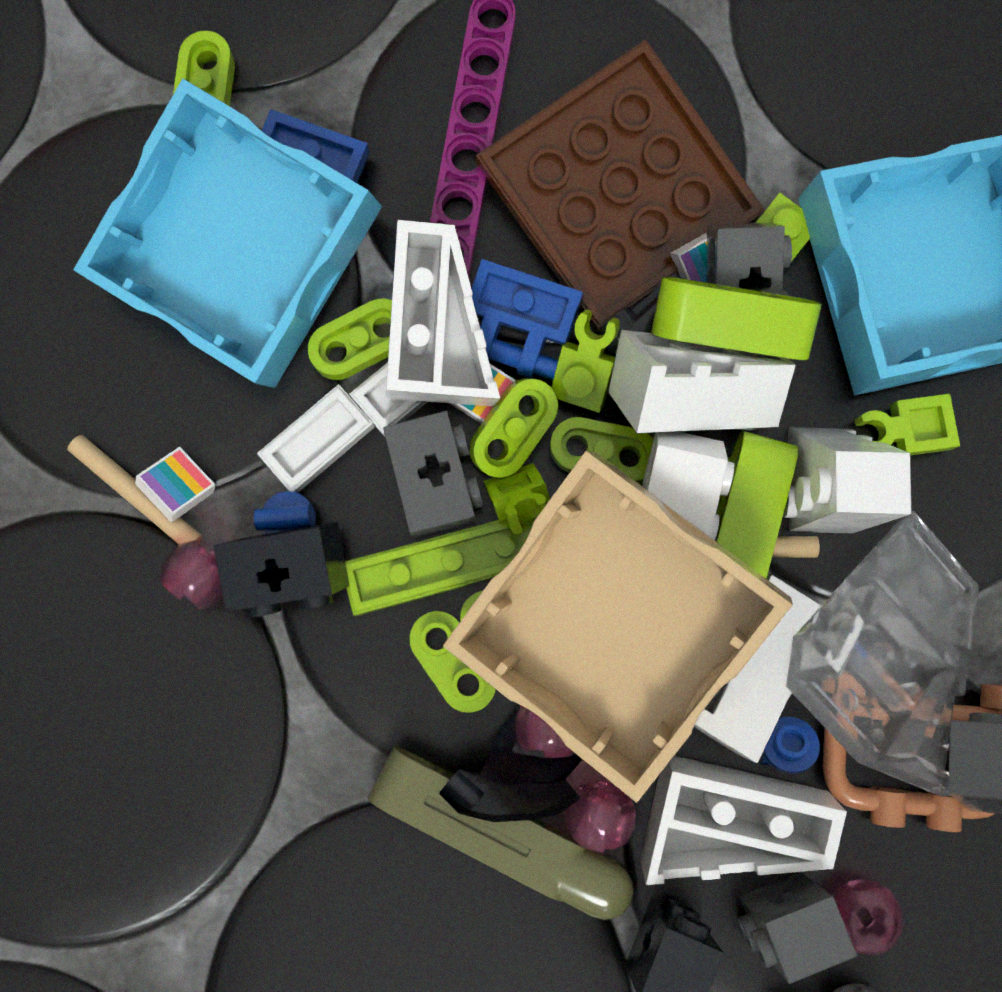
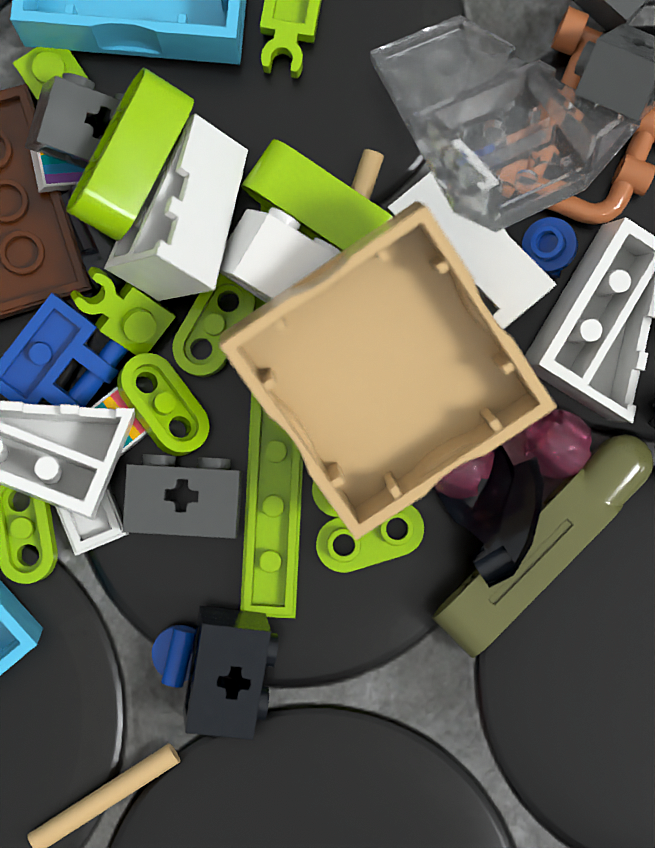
camera: 70 degrees left, 5 degrees up
(175, 484) = (109, 754): tile -> none
(192, 574) = (205, 762): clear pink piece -> none
(316, 439) = (110, 602): white tile -> none
(518, 496) = (233, 421): lime plate -> none
(845, 482) = (320, 107): white wedge -> none

